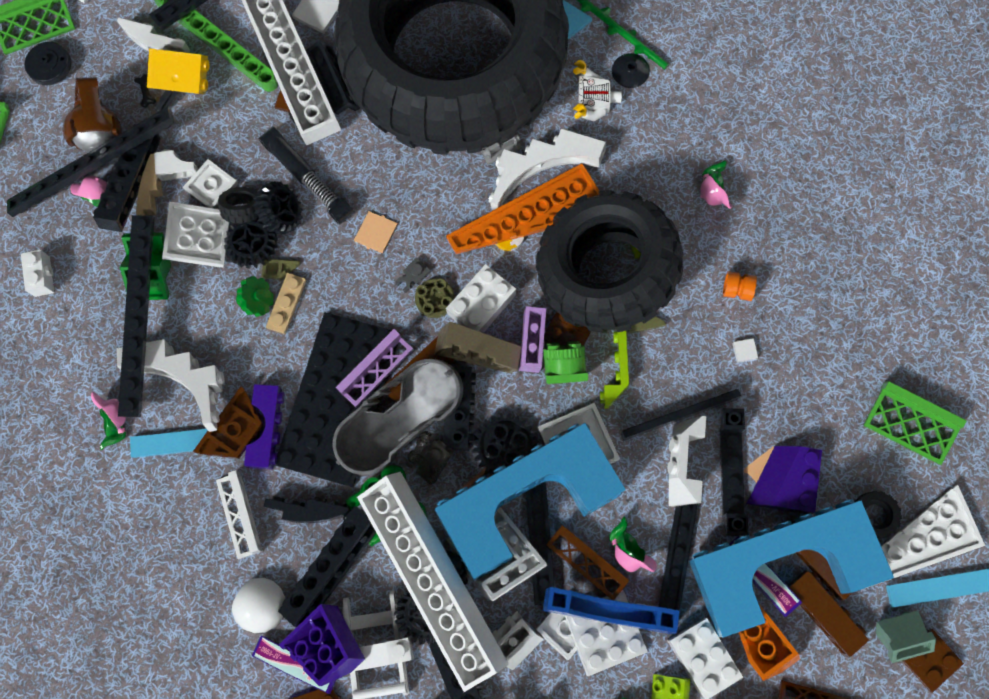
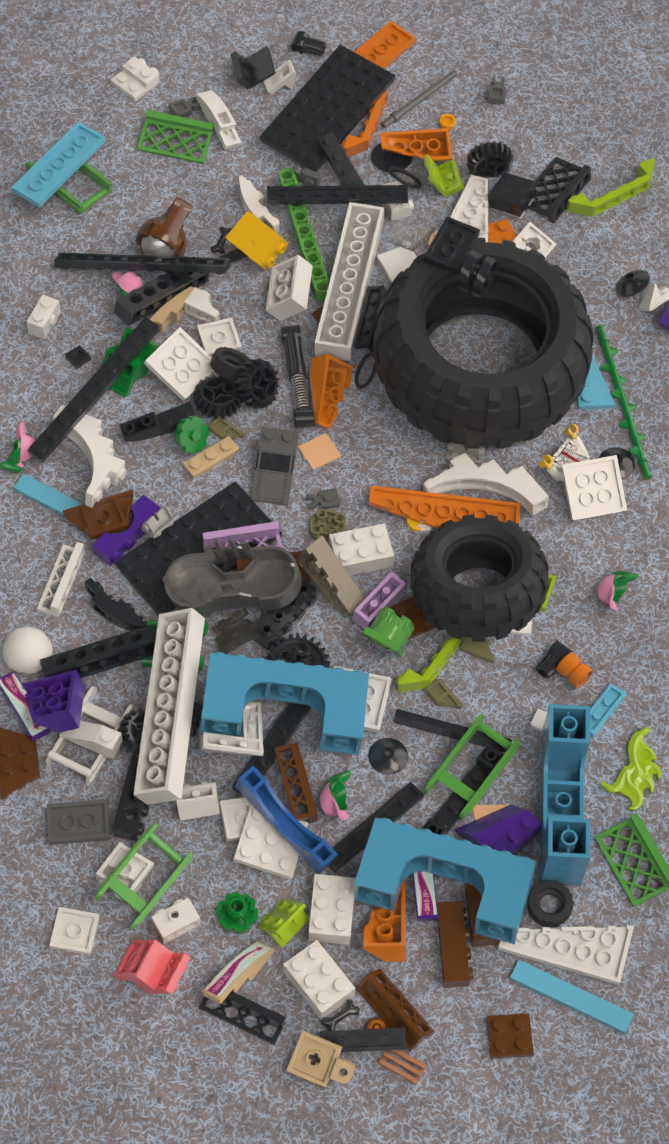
camera: 25 degrees right, 15 degrees down
(47, 63) = (164, 175): black wheel -> none
(97, 289) = (78, 357): none -> black tile
(216, 306) = (156, 425): none -> black slope
(239, 97) = (289, 288): none -> white brick
(286, 408) = (154, 527): none -> light grey hinge
(335, 161) = (328, 381): none -> orange wedge
(348, 274) = (275, 466): none -> dark grey slope
(354, 134) = (359, 368): none -> black tyre
(633, 107) = (594, 487): none -> white plate
(637, 485) = (384, 763): none -> black dish
(645, 386) = (442, 695): none -> olive tile
(683, 490) = (422, 750): white slope -> none
(714, 284) = (555, 655): none -> black piece
(721, 464) = (456, 785): none -> bright green piece
(784, 305) = (604, 707): none -> medium azure tile
(854, 458) = (564, 829): none -> dark azure arch
(856, 342) = (638, 773): none -> lime piece
(905, 636) = (500, 998): sand green hips -> none

